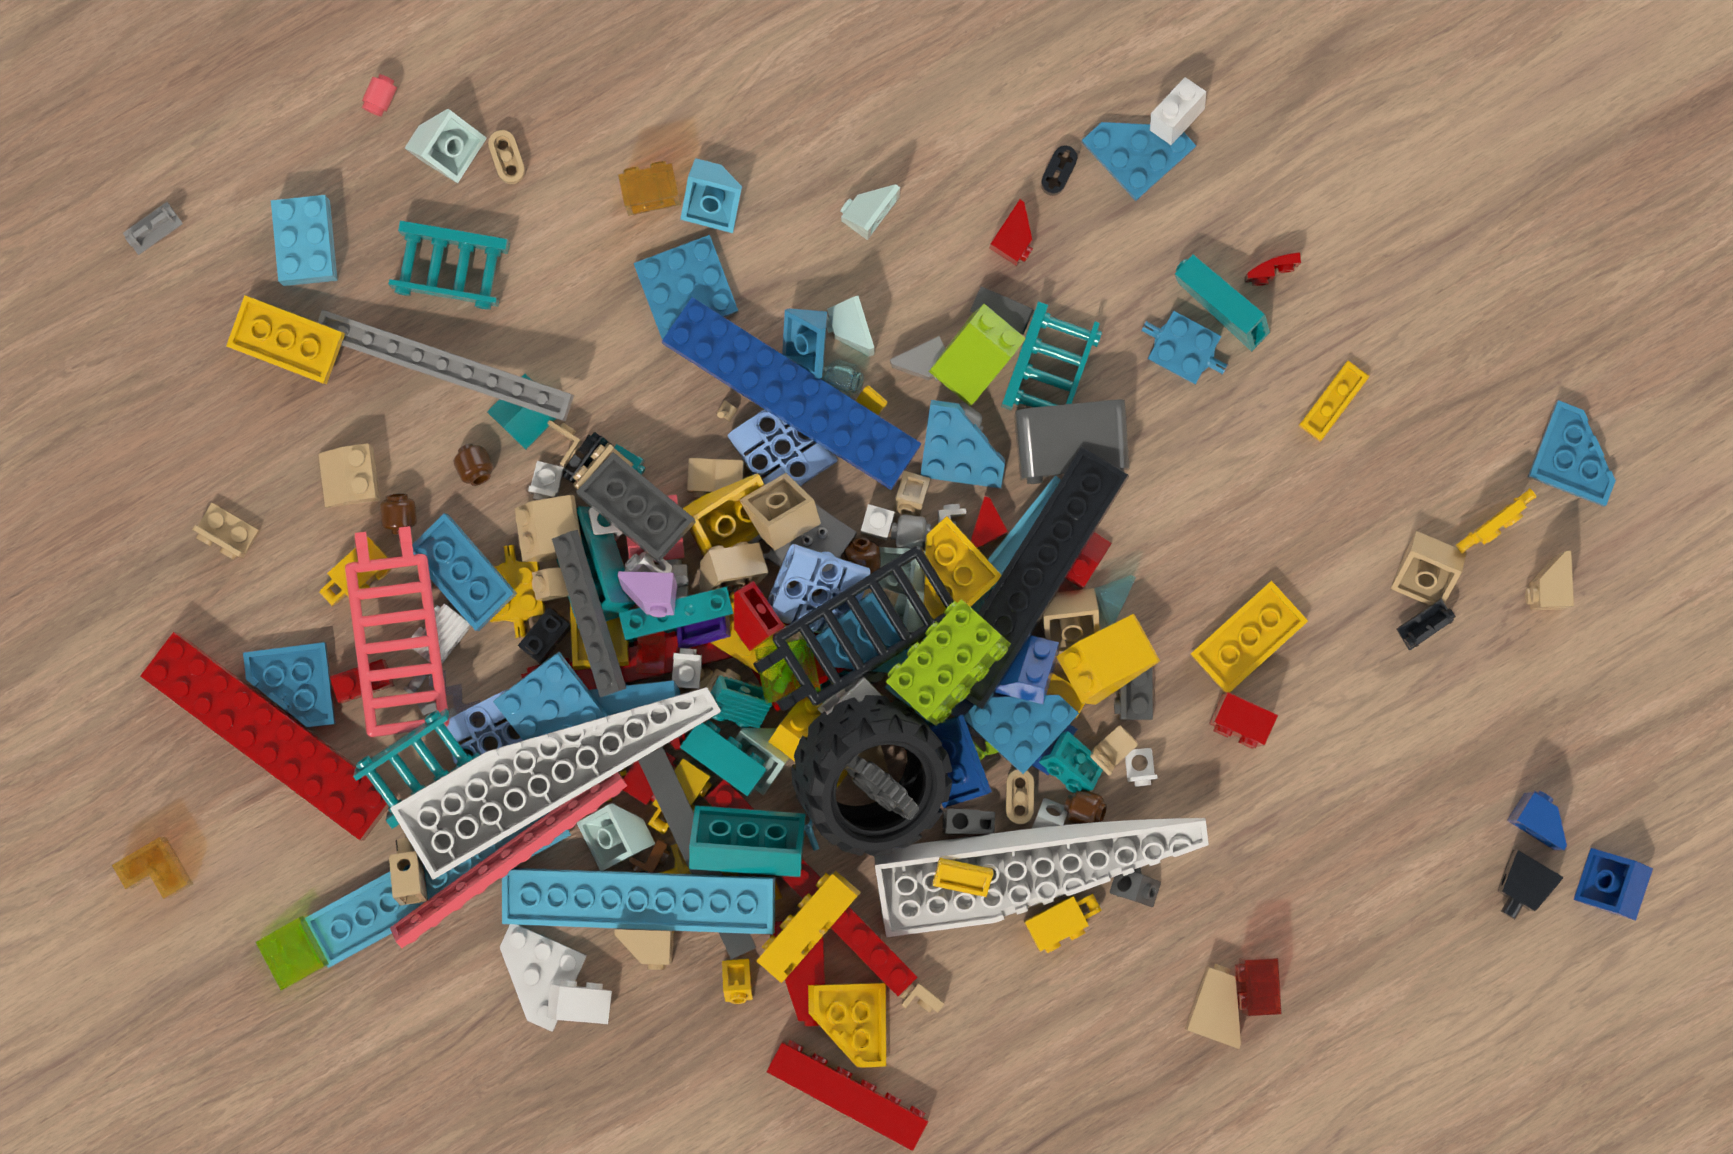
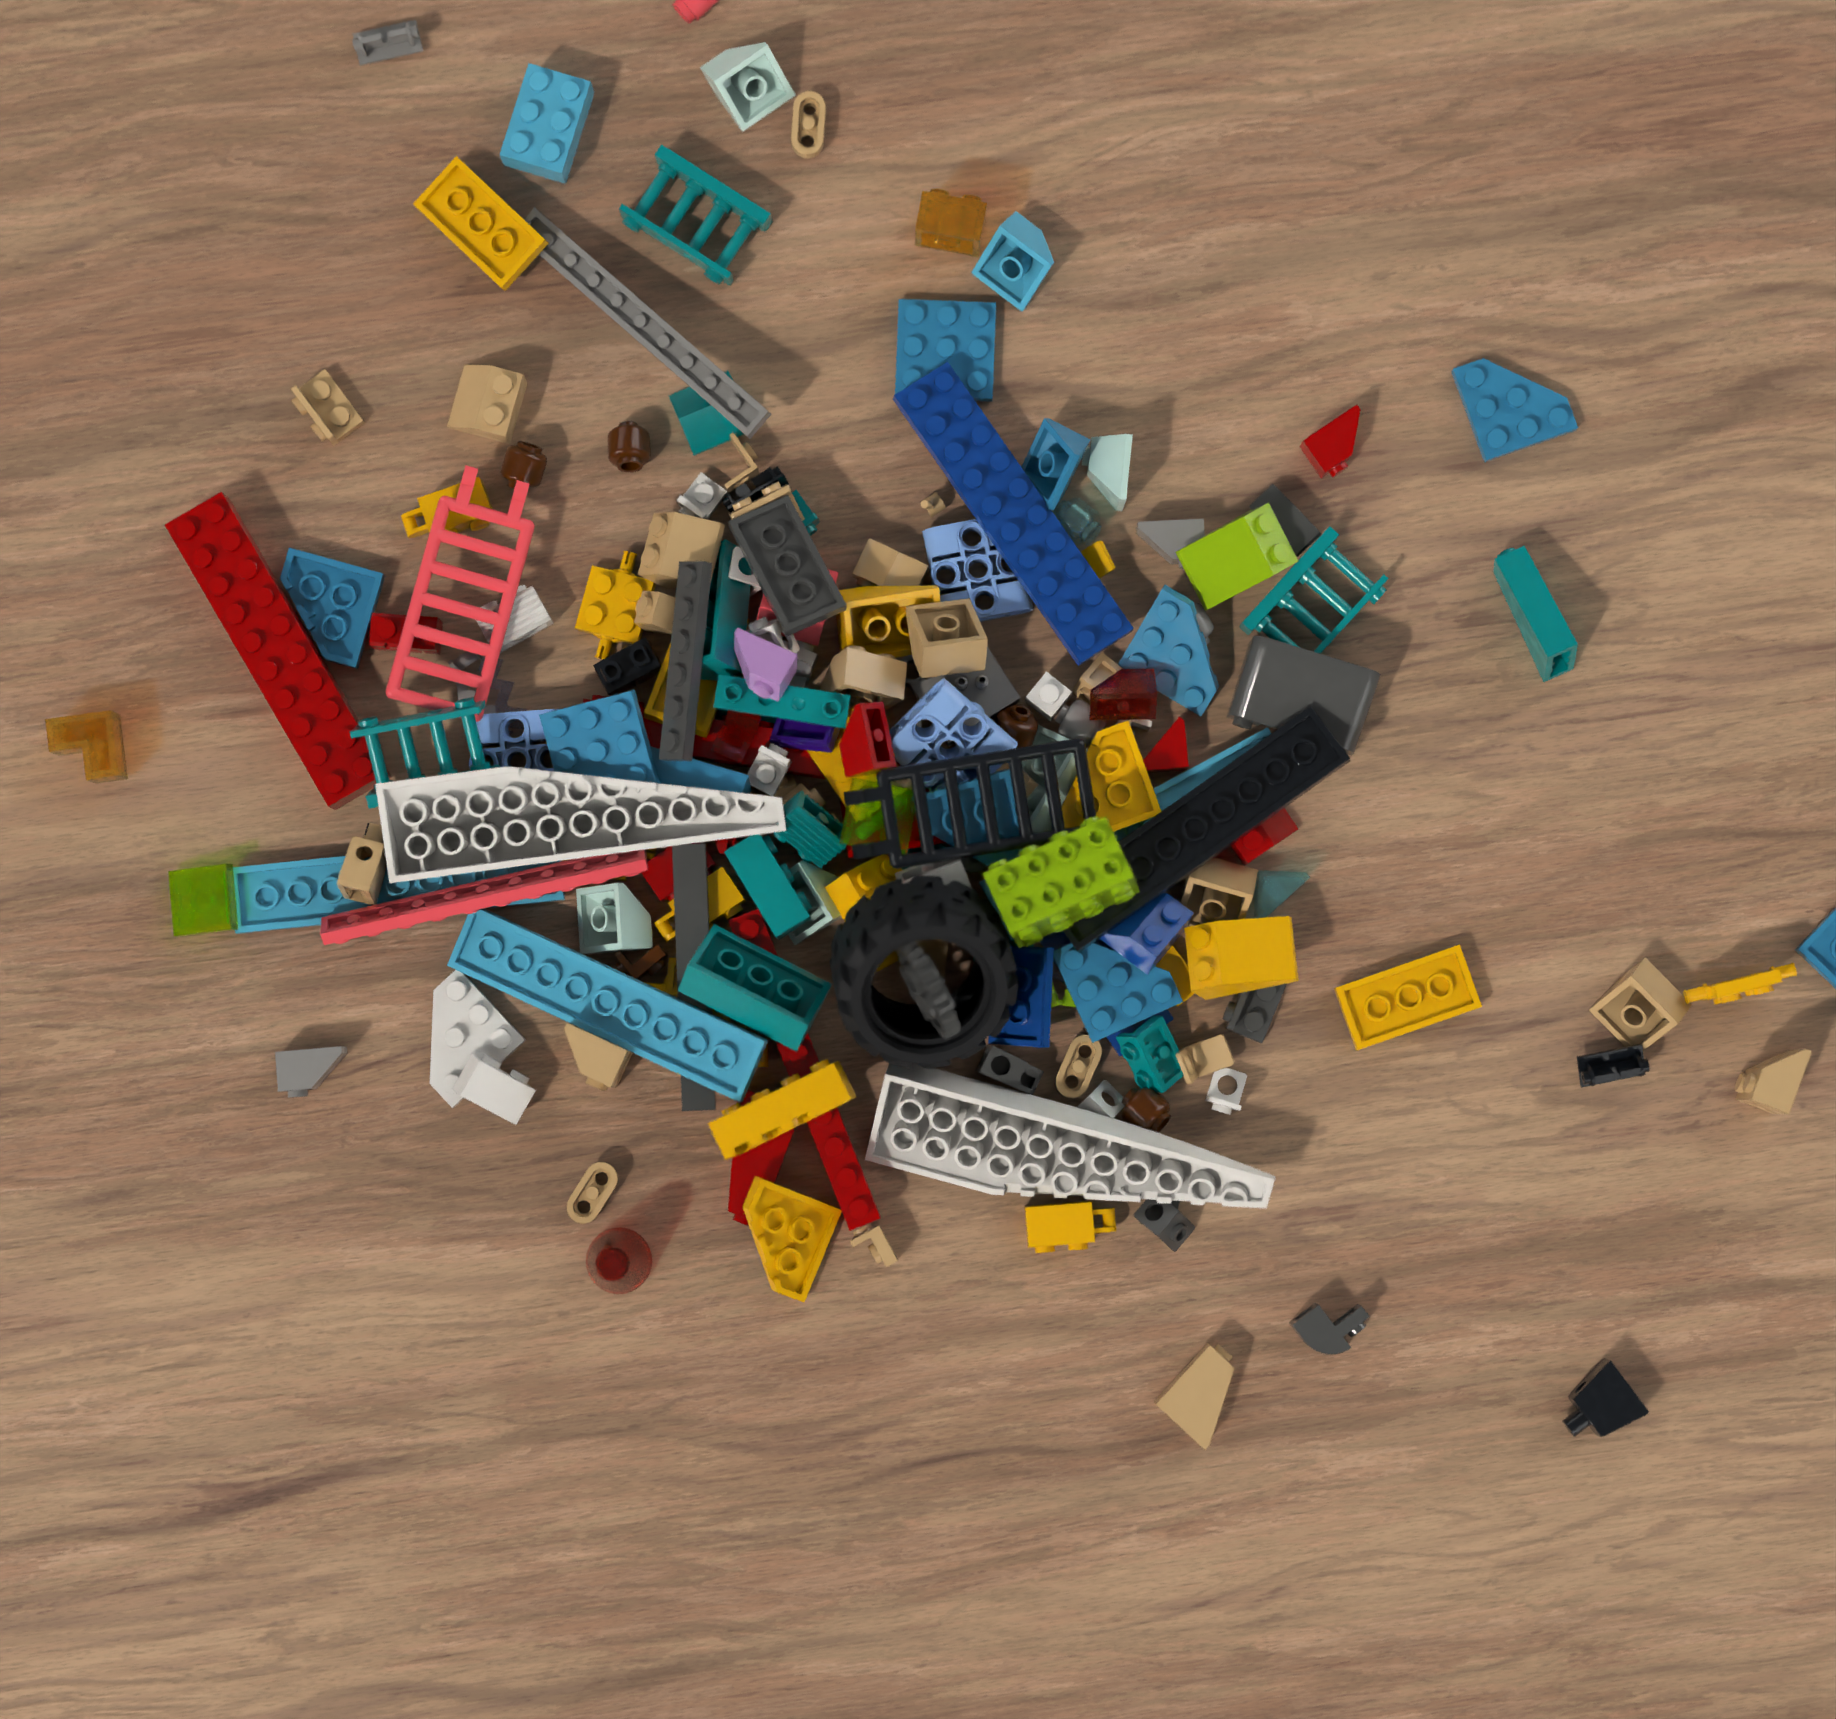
camera: 25 degrees right, 0 degrees up
(426, 1049) = (306, 1068): none -> light grey slope
(463, 572) = (567, 560): dark azure plate -> none
(688, 1050) = (593, 1192): none -> tan plate
(730, 1094) = (619, 1260): none -> clear red cone
(736, 981) = (679, 1138): yellow bracket -> none
(810, 833) = (829, 1006): medium azure hand -> none
(847, 1095) = (748, 1317): red brick -> none
(869, 209) = (1185, 347): light aqua slope -> none
(936, 498) = (1125, 696): none -> clear red slope
(962, 877) = (977, 1128): yellow tile -> none
(1065, 173) = (1408, 386): black beam -> none
(1178, 111) = (1574, 380): white brick -> none
(1184, 347) = (1470, 646): dark azure plate -> none
(1242, 720) = (1362, 1086): red brick -> none
(1259, 986) = (1256, 1389): clear red brick -> none
(1265, 271) = (1596, 599): red slope -> none
(1291, 922) = (1327, 1337): none -> dark grey brick
(1334, 401) = (1613, 775): yellow tile -> none
(1539, 819) = (1649, 1336): blue slope -> none
(1613, 884) = (1701, 1443): blue slope -> none

